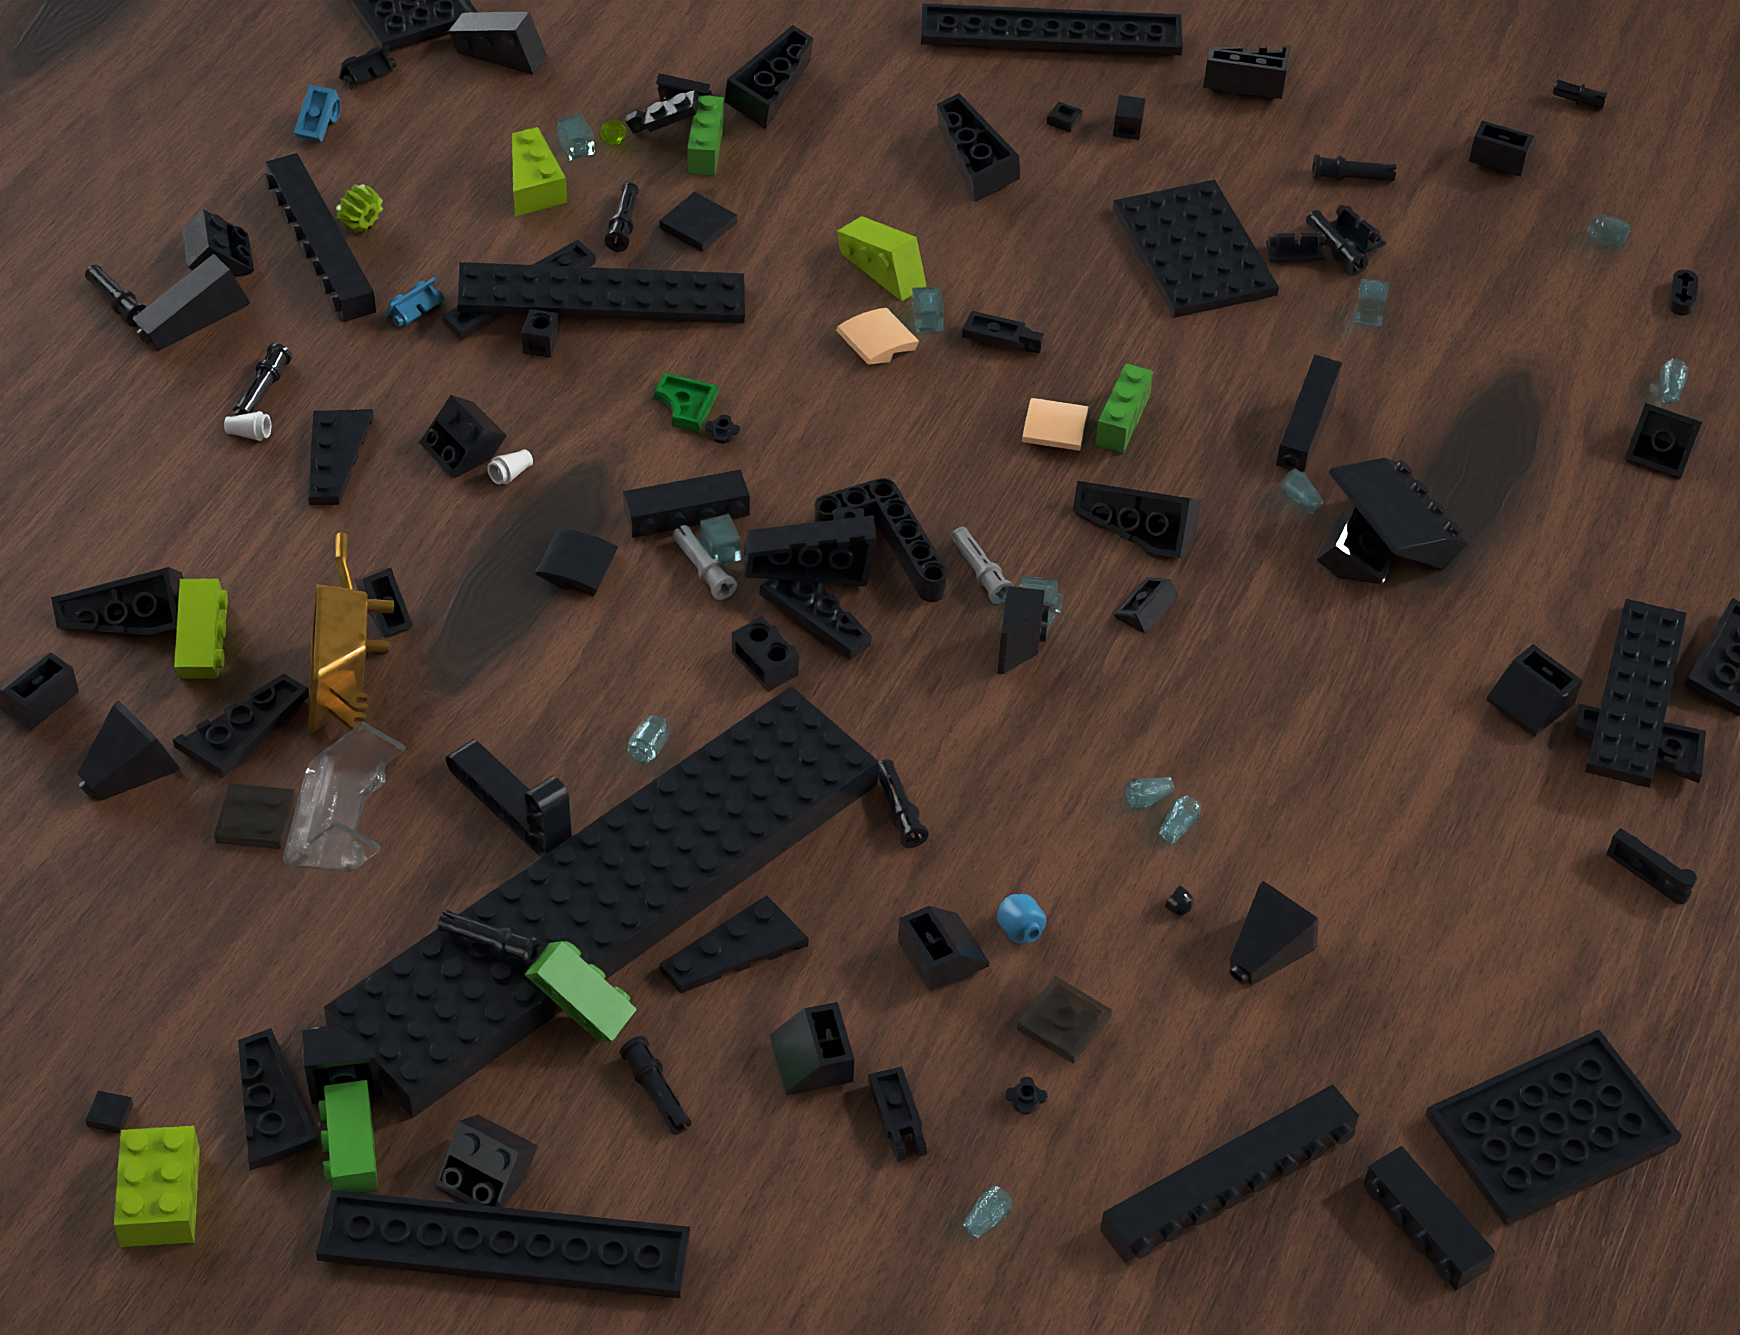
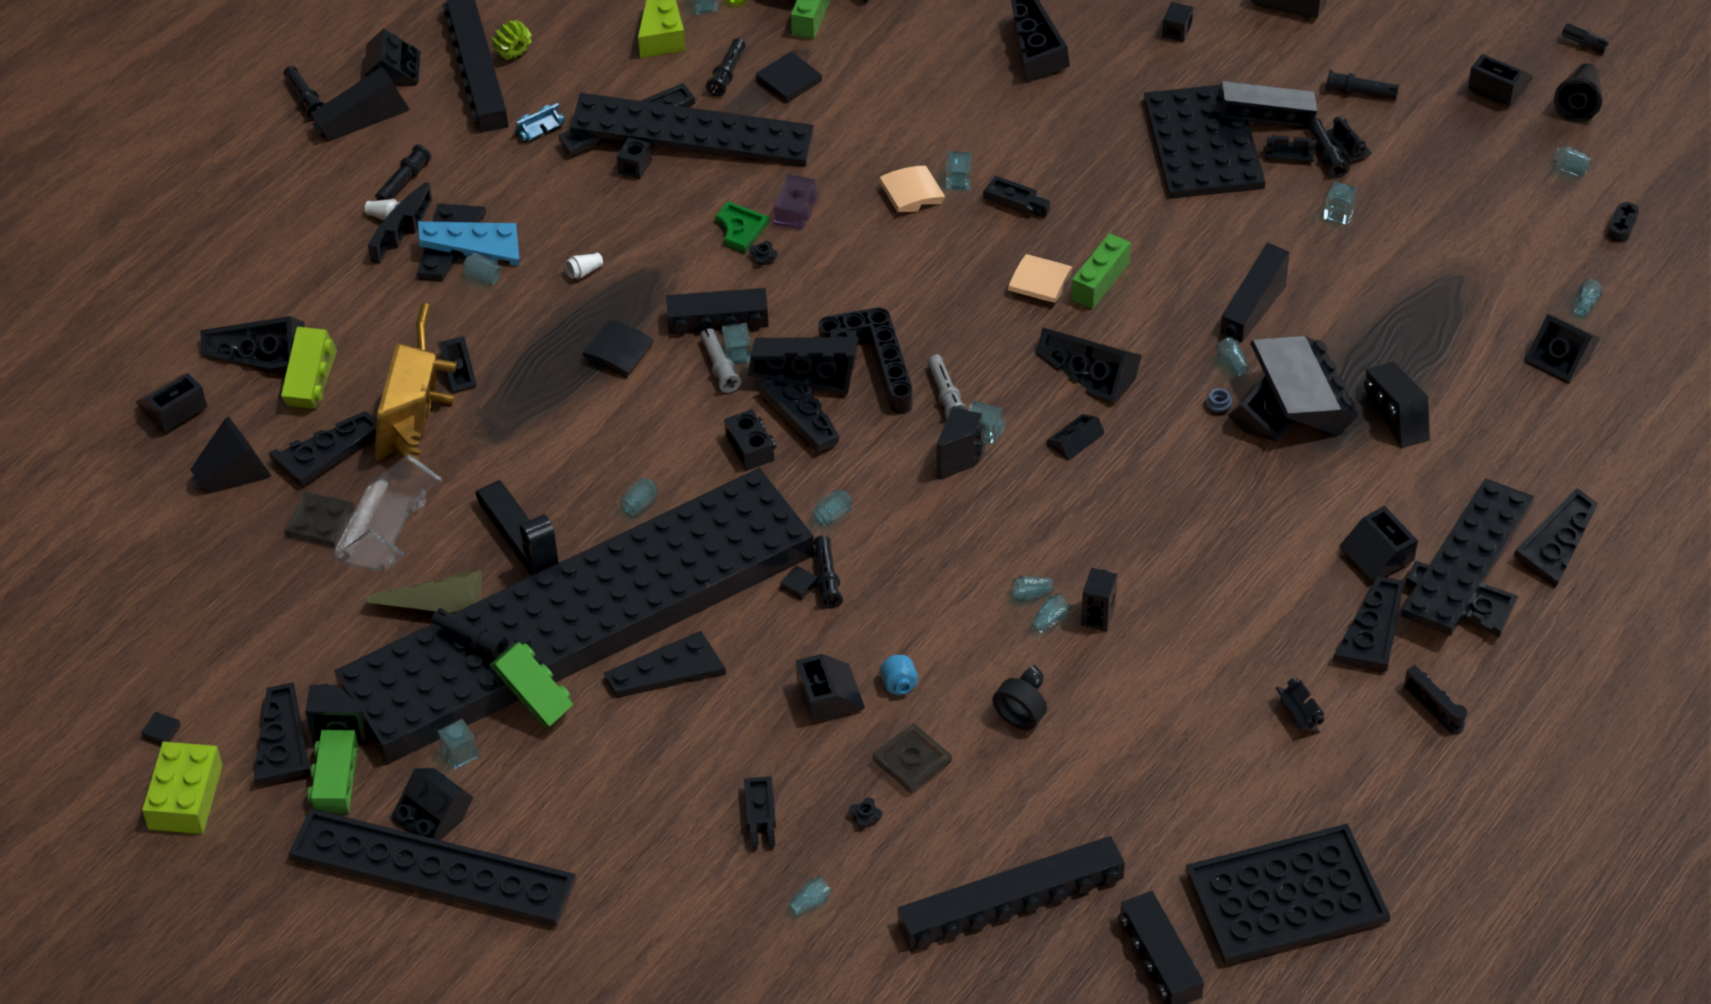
camera: 15 degrees right, 0 degrees up
(274, 434) = (400, 220): none -> black slope
(367, 448) = (486, 239): none -> dark azure wing
(387, 484) = (482, 269): none -> clear light blue brick
(448, 887) = (448, 593): none -> olive wedge
(462, 437) = (550, 236): black slope -> none
(501, 1079) = (458, 744): none -> clear light blue brick
(649, 1073) = (574, 754): black pin -> none
(746, 365) = (795, 202): none -> clear purple brick
(813, 1050) = (704, 754): black slope -> none
(869, 820) = (799, 582): none -> black tile
(884, 255) = (933, 121): lime wedge -> none
(886, 724) = (832, 507): none -> clear light blue brick
(1064, 116) = (1123, 16): black tile -> none
(1185, 923) = (1019, 703): none -> black tyre
(1236, 796) = (1099, 599): none -> black brick
(1257, 199) = (1265, 104): none -> black brick
(1272, 936) = (1096, 715): black slope -> none
(1300, 543) = (1219, 400): none -> sand blue plate
(1492, 886) = (1306, 714): none -> black hinge
(1506, 522) = (1399, 402): none -> black wedge
(1555, 789) = (1373, 630): none -> black wing
(1597, 156) = (1580, 94): none -> black cone

